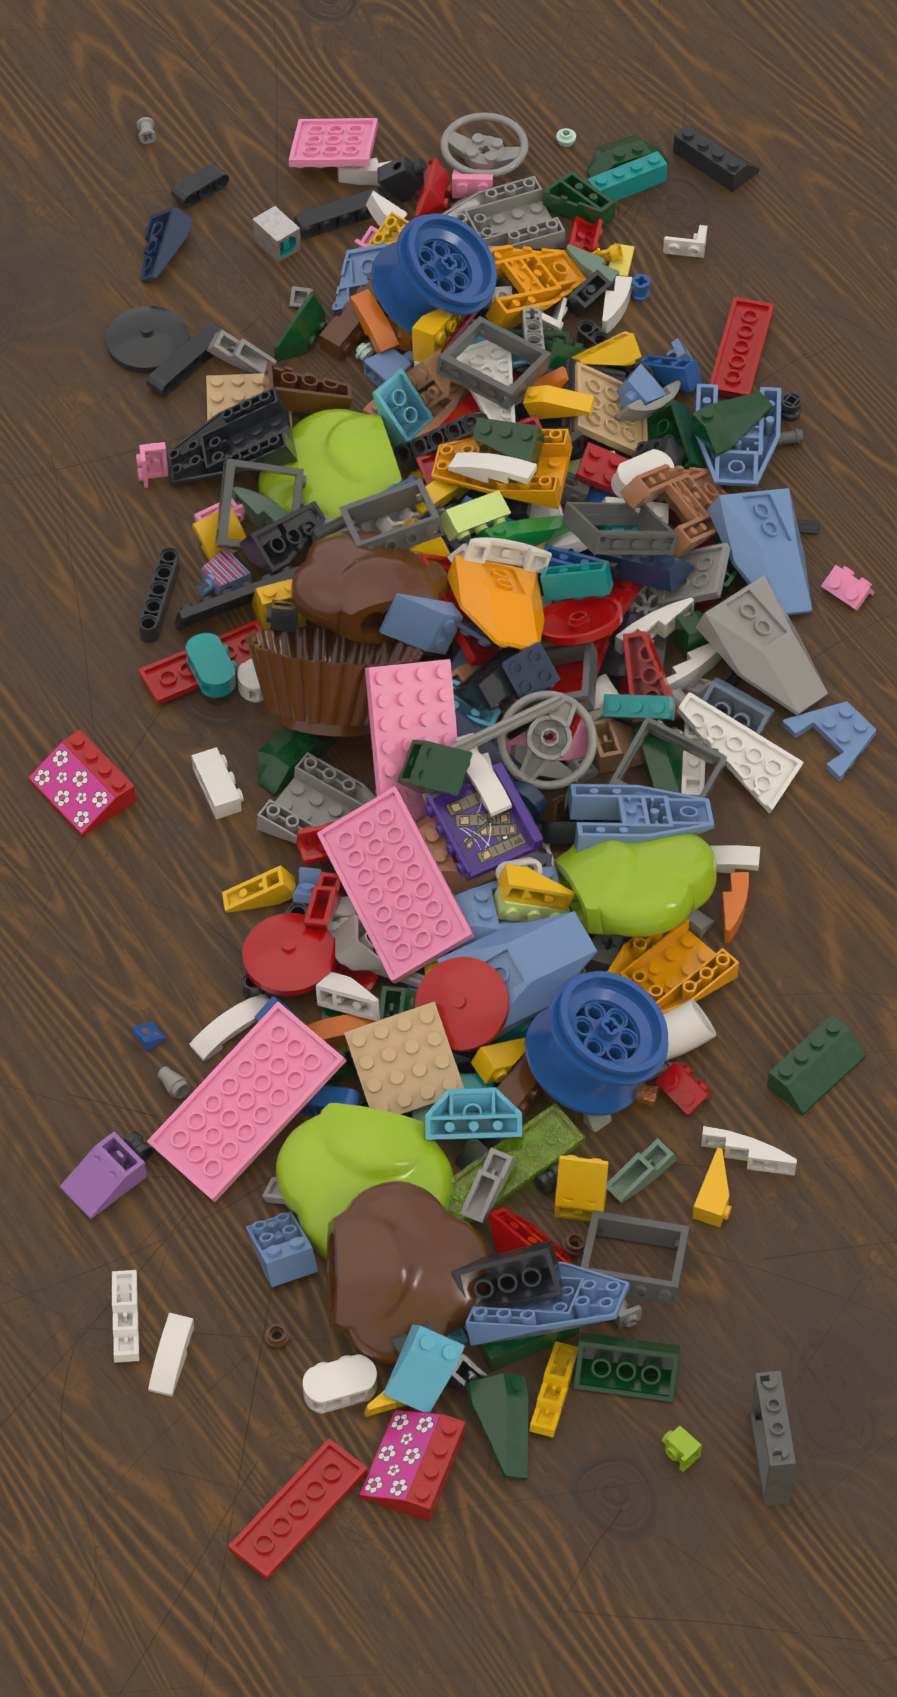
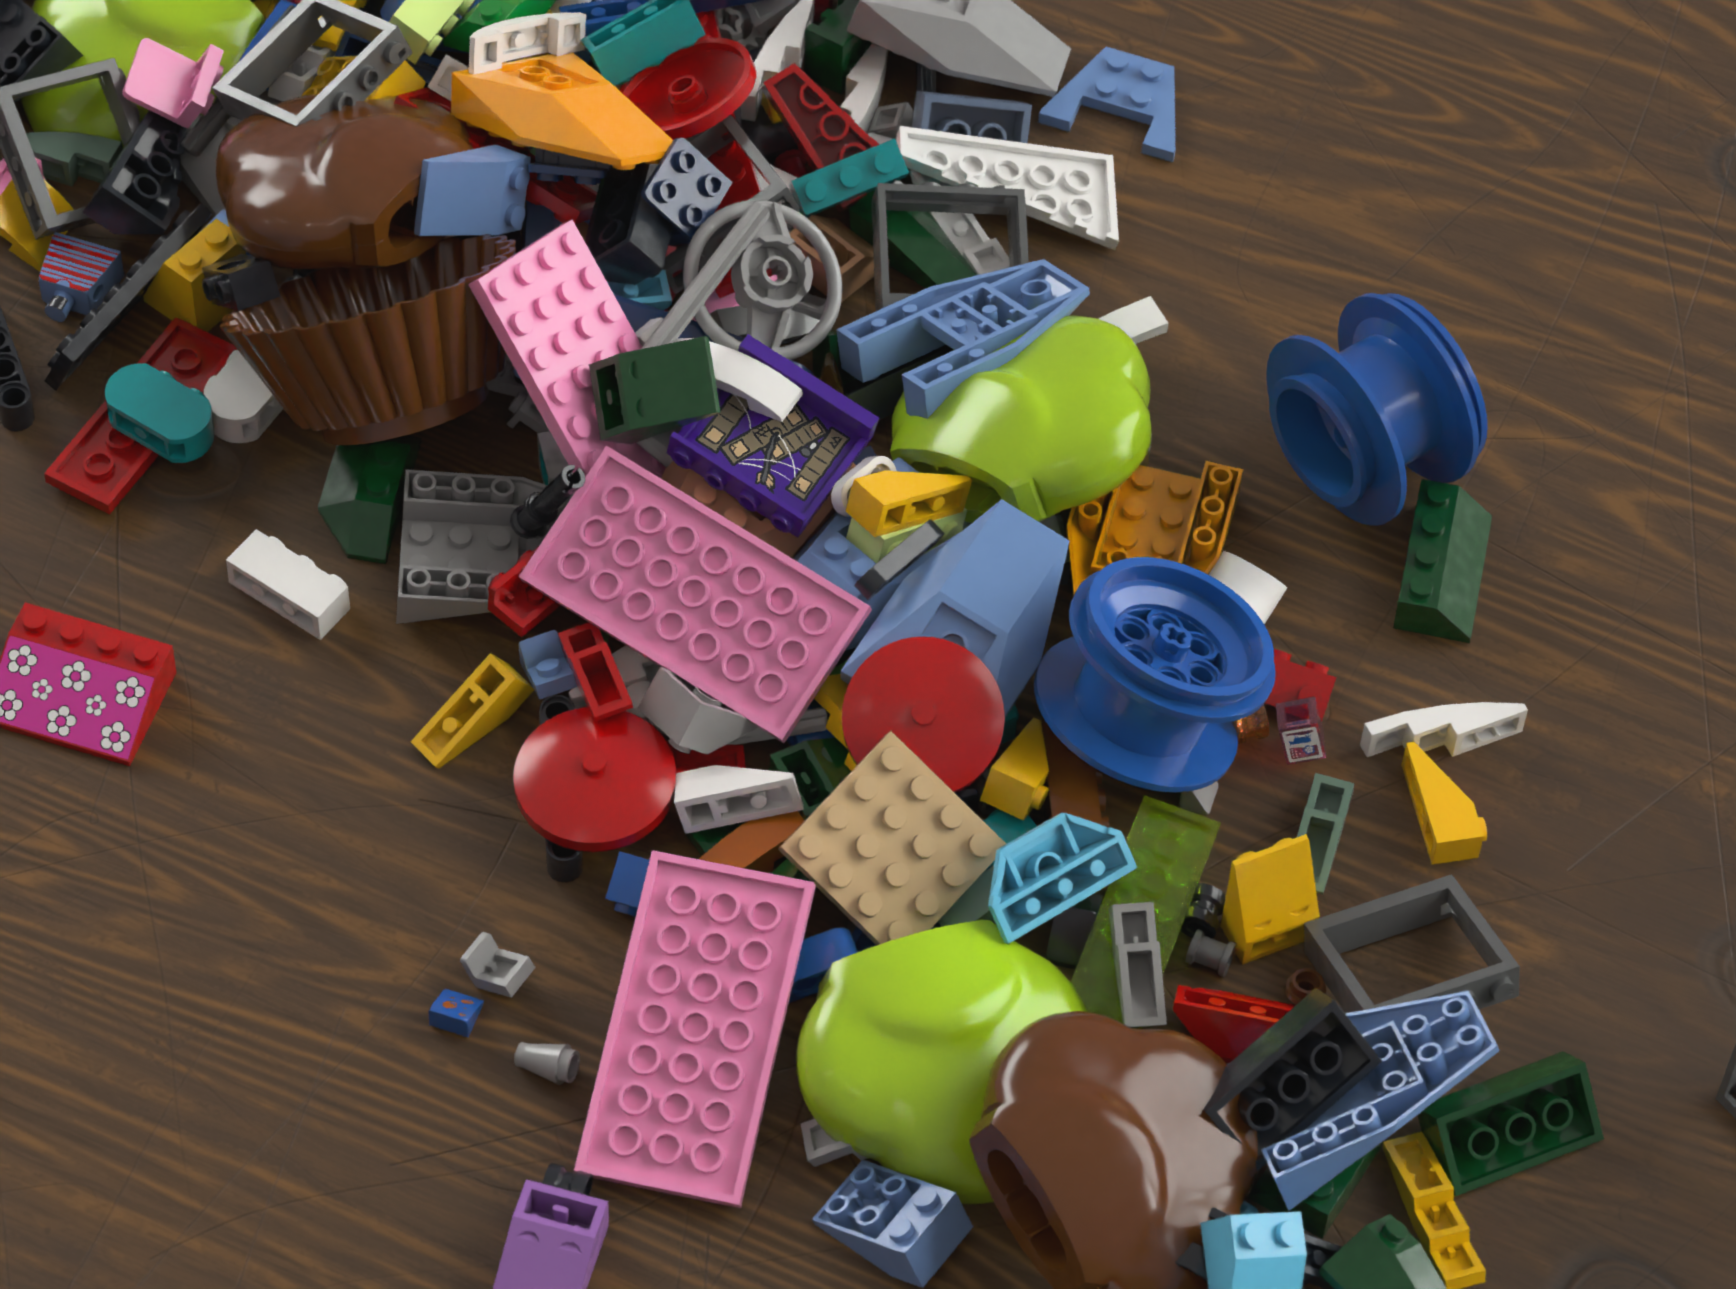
camera: 35 degrees left, 0 degrees up
(180, 1023) = (495, 968): none -> light grey bracket
(227, 1026) = (571, 934): white slope -> none
(325, 494) = (173, 83): none -> bright pink bracket
(355, 801) = (542, 507): none -> black pin
(505, 917) = (899, 559): none -> beam
(538, 1201) = (1210, 953): none -> dark grey bush
(668, 1113) = (1301, 730): none -> clear pink brick
(682, 1447) = (1671, 1195): lime brick -> none
(734, 903) = (1169, 397): orange slope -> none
(820, 962) = (1380, 404): none -> blue wheel

